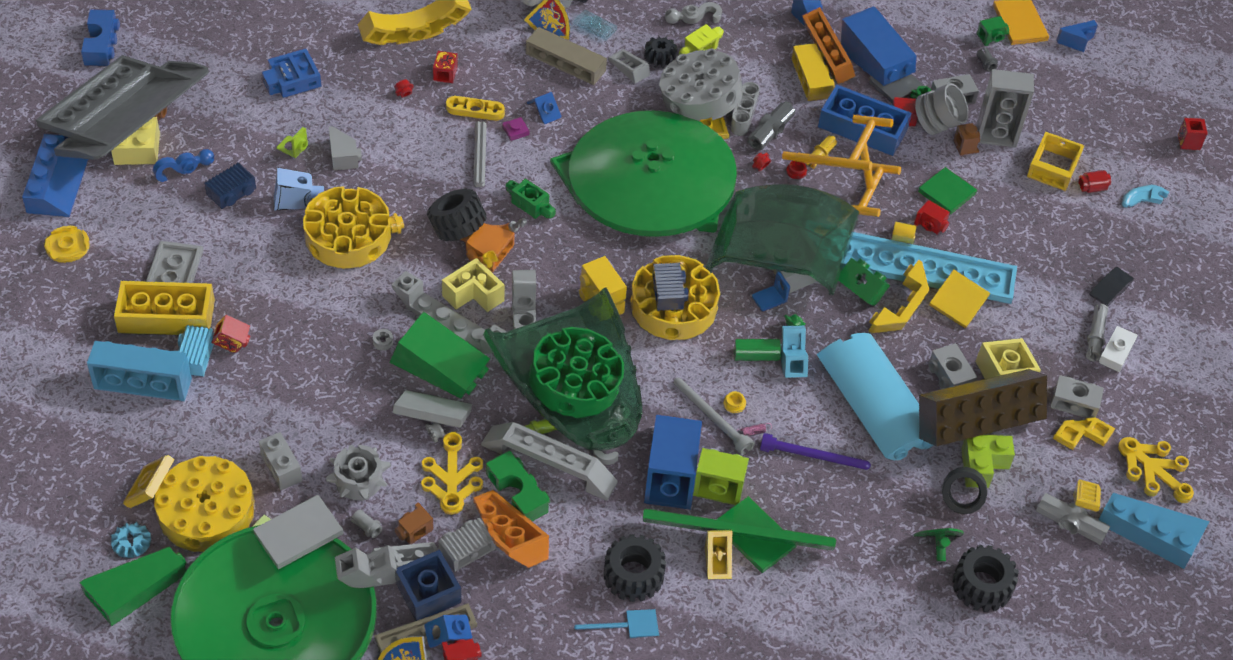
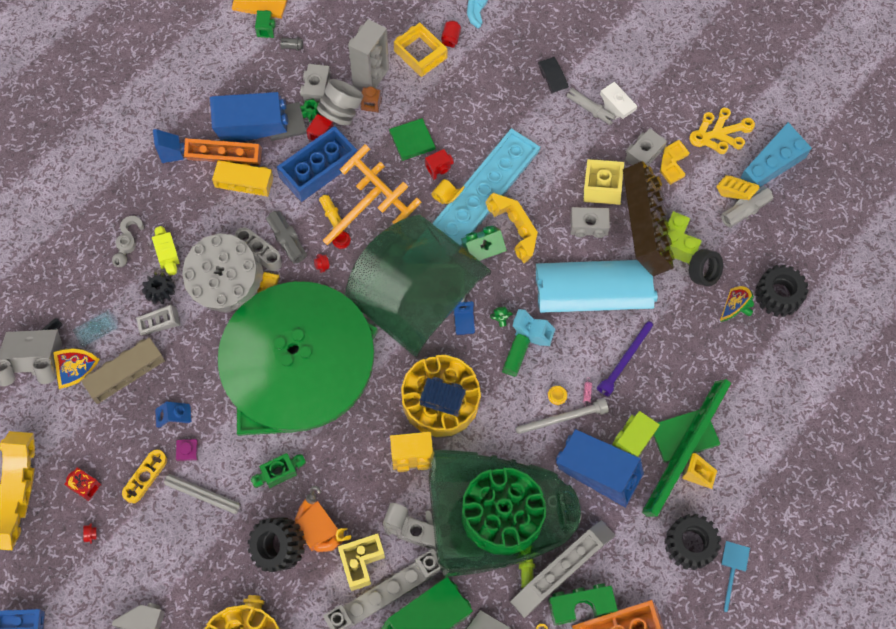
camera: 65 degrees left, 15 degrees up
(959, 299) = (526, 183): yellow tile -> none

